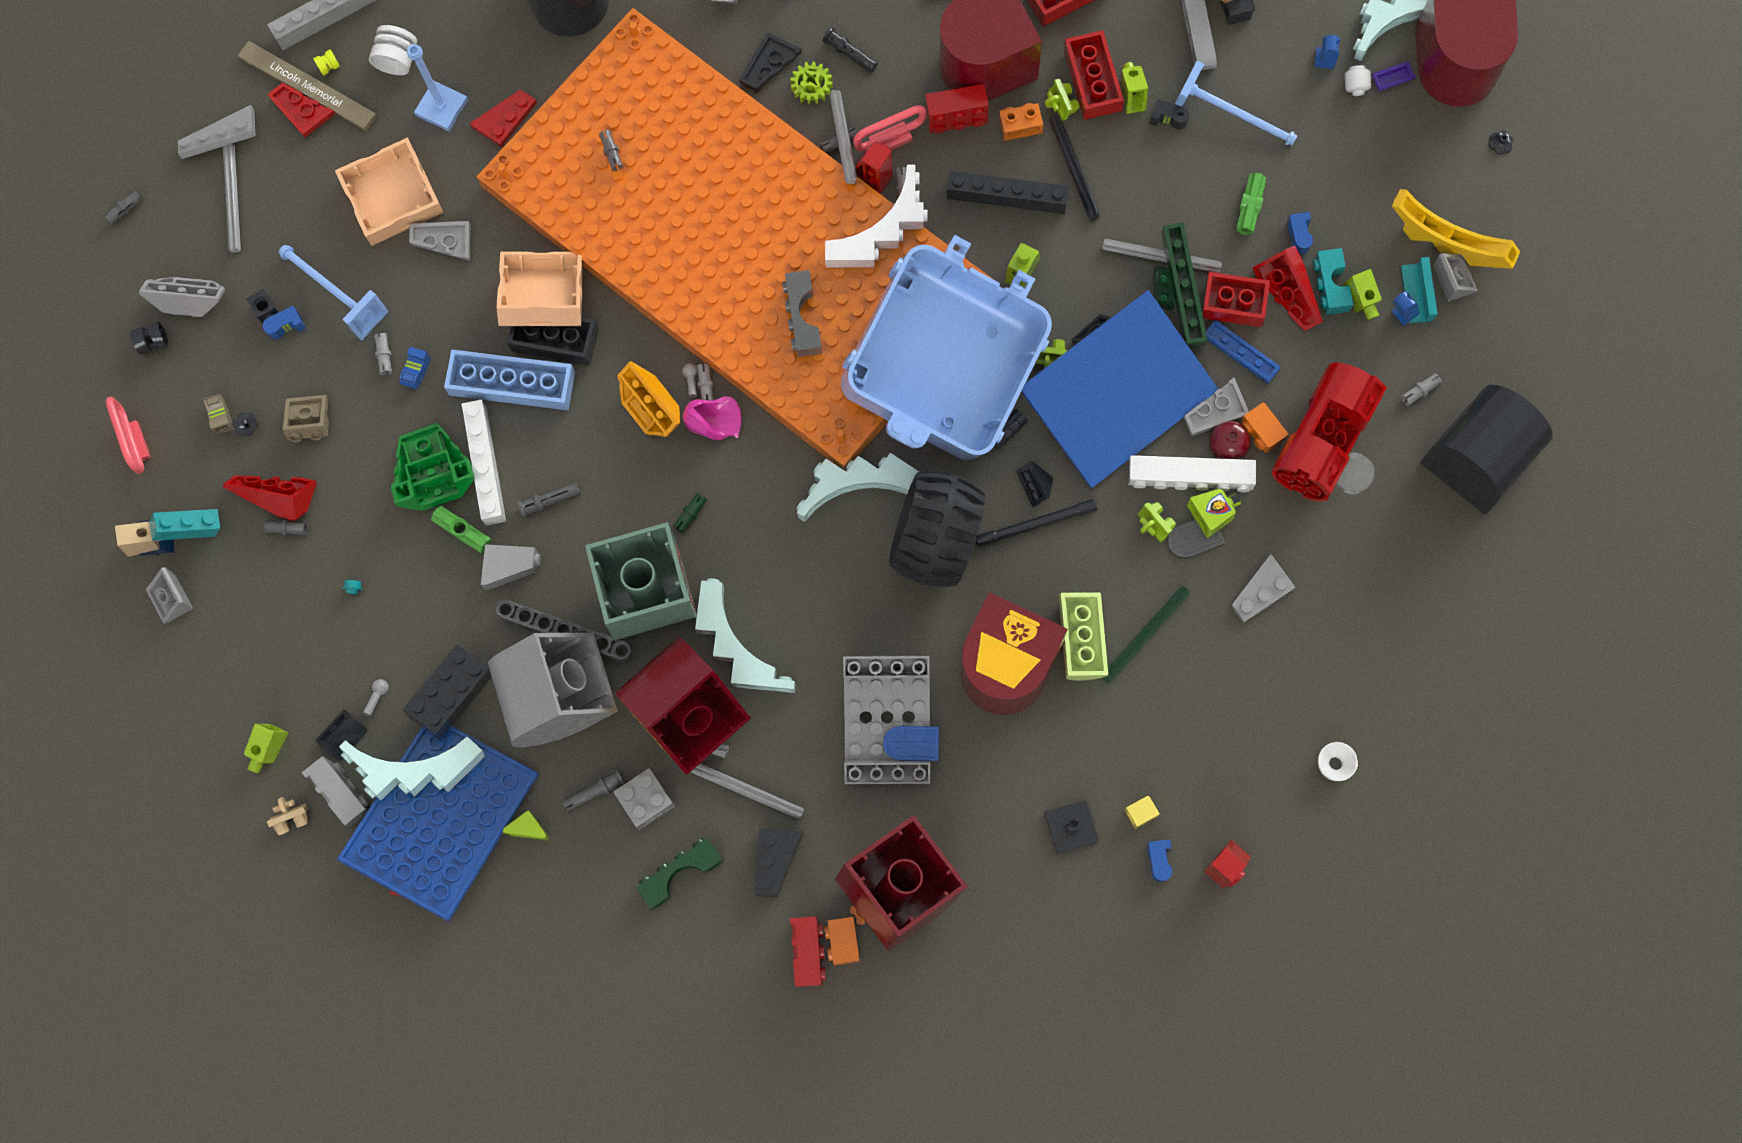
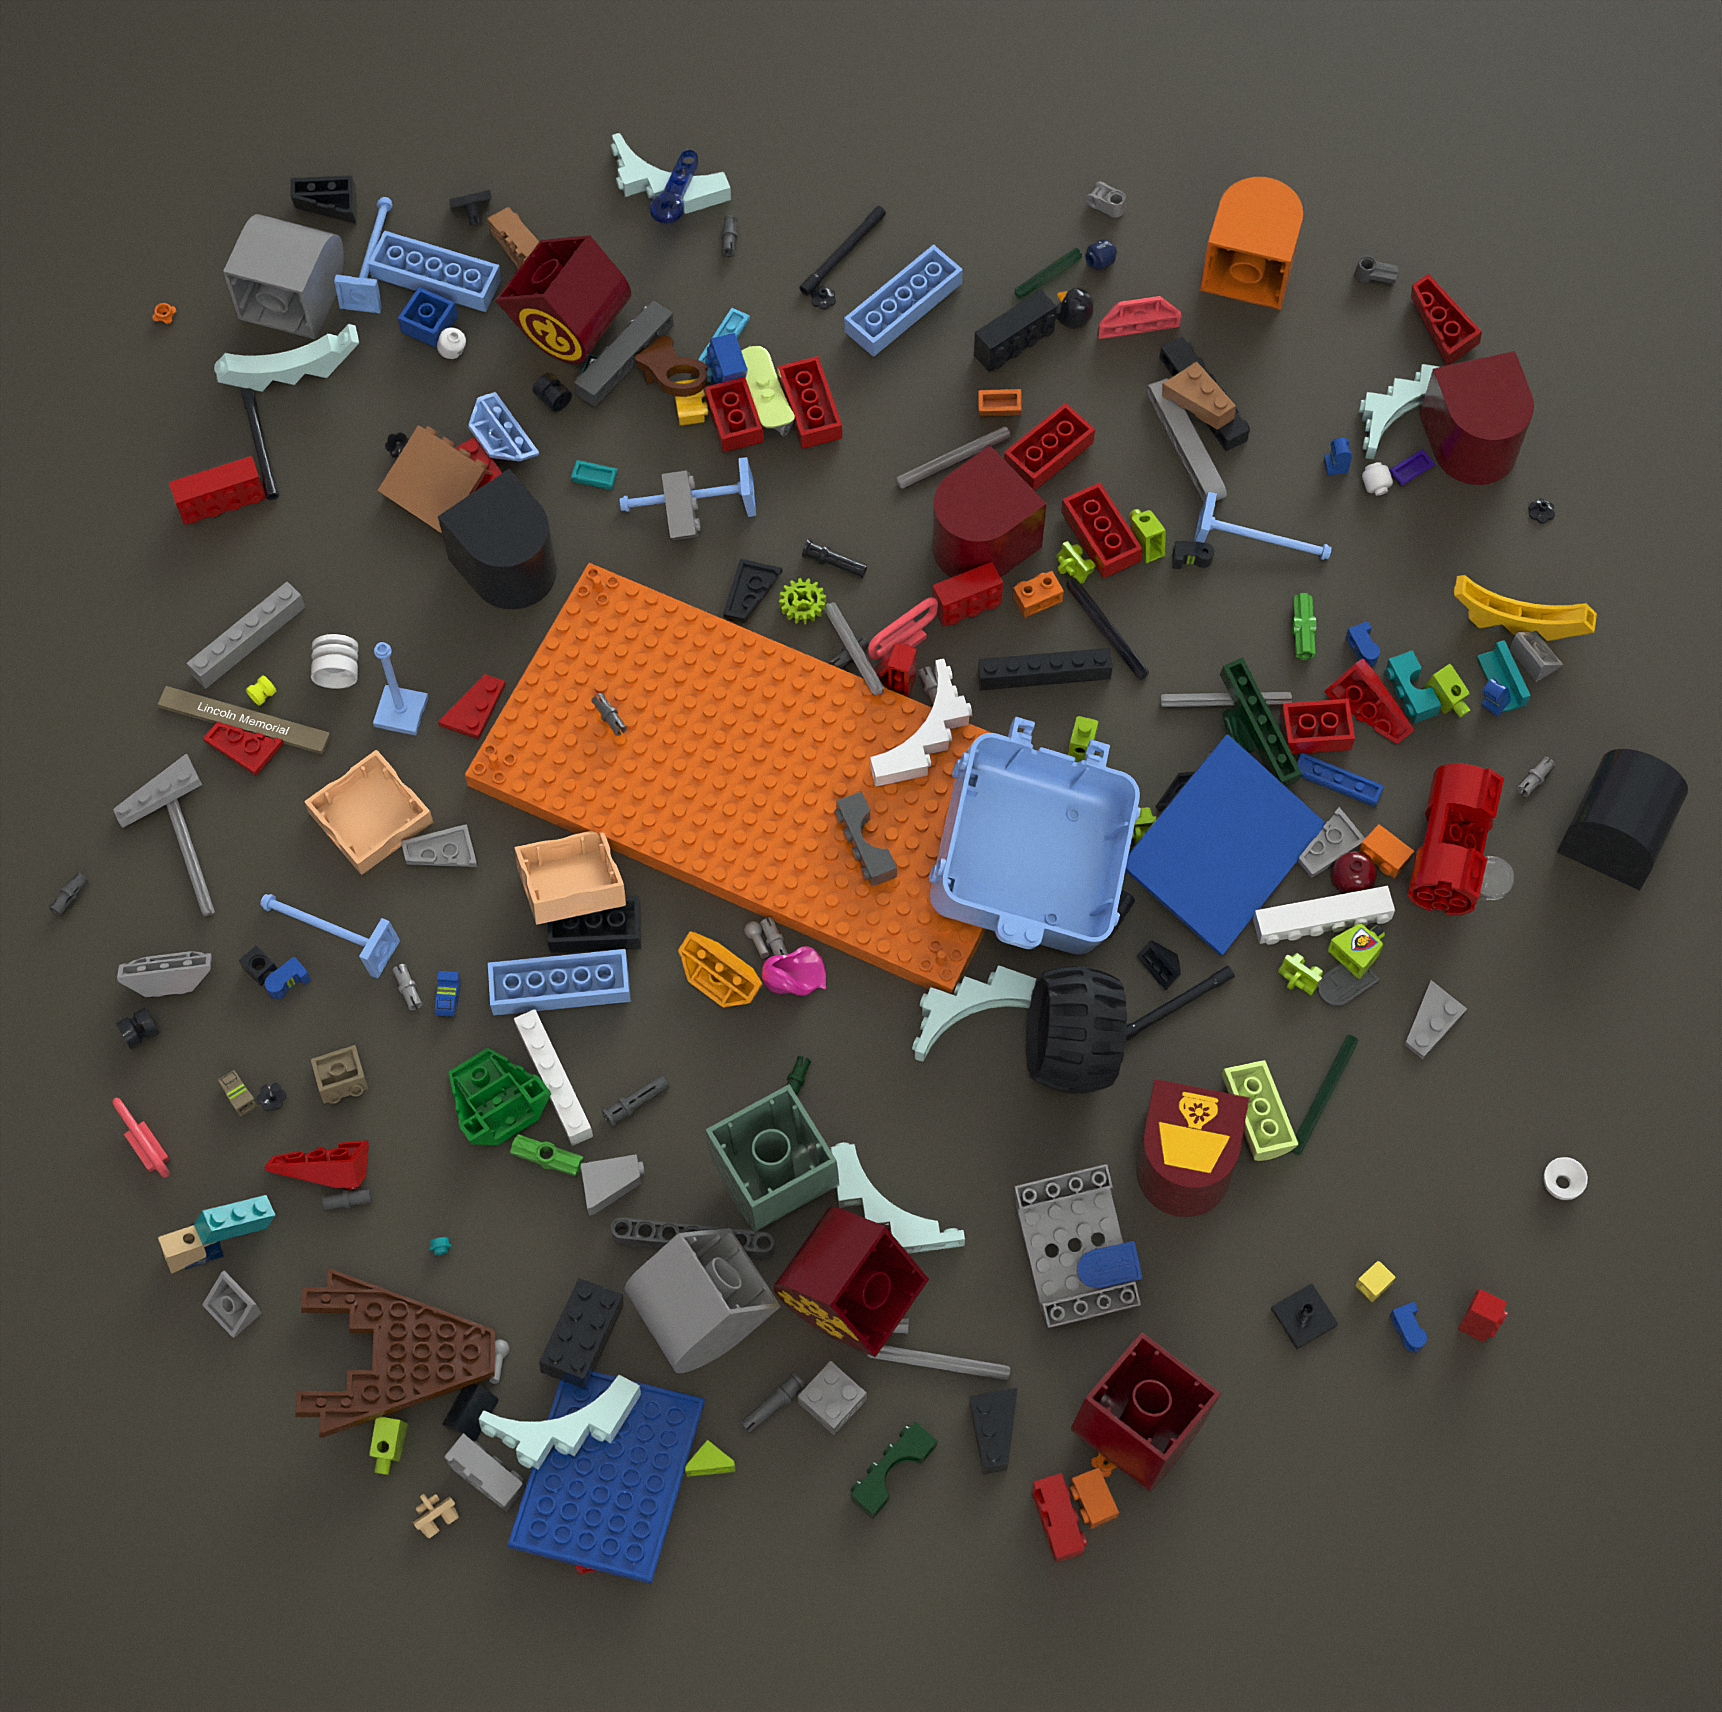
camera: 20 degrees left, 10 degrees down
(305, 677) = (415, 1353): none -> reddish brown wing

